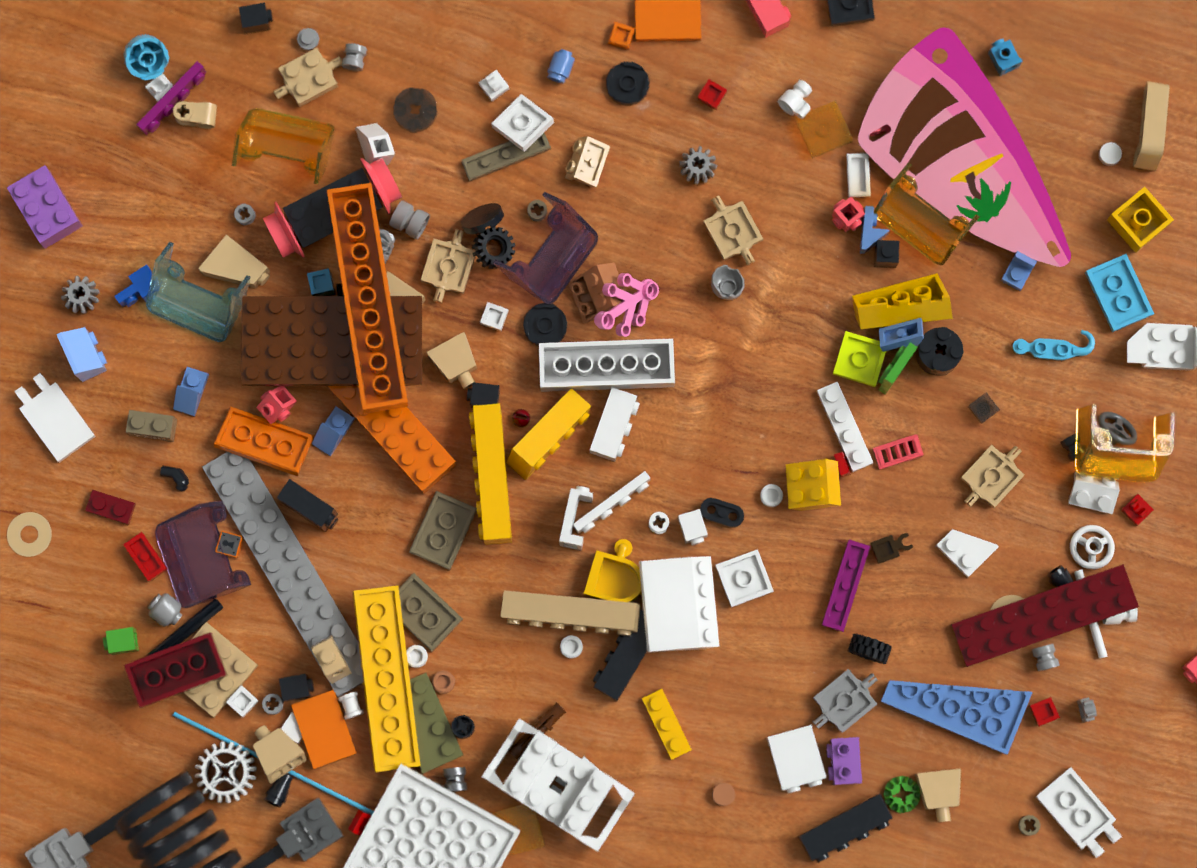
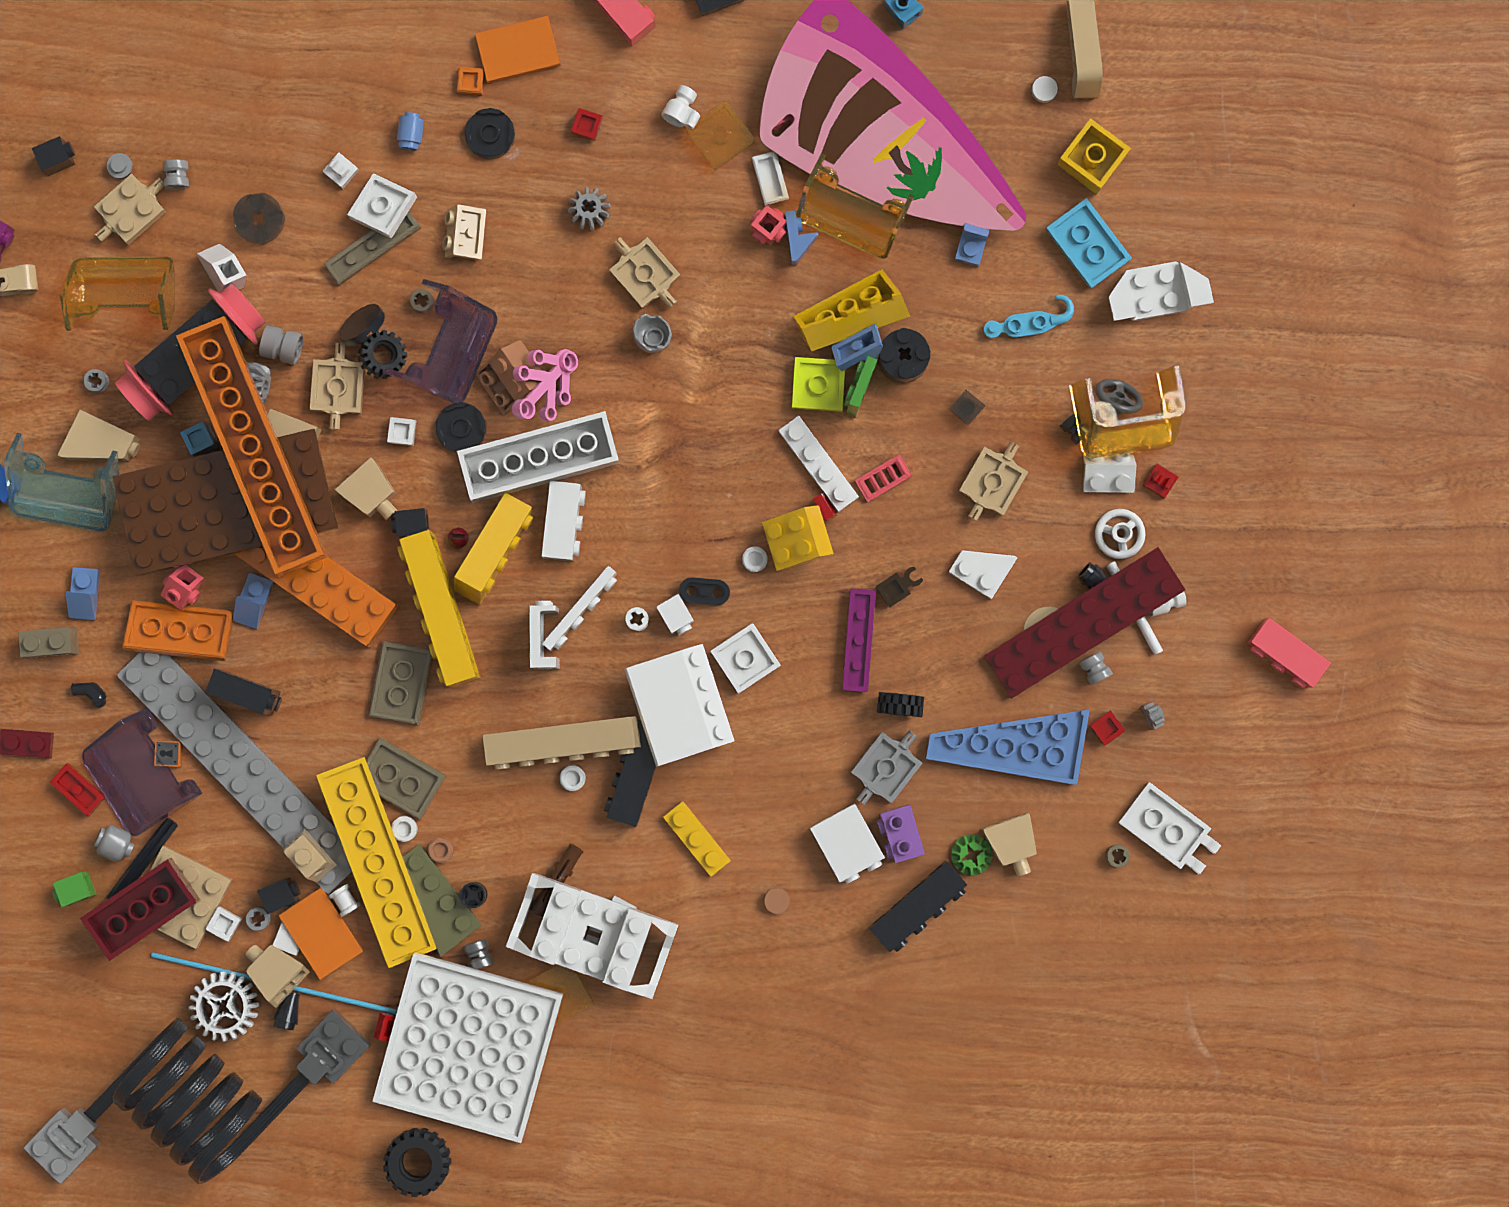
camera: 15 degrees left, 5 degrees up
(614, 576) = (601, 691): yellow piece -> none
(886, 254) = (821, 260): black brick -> none

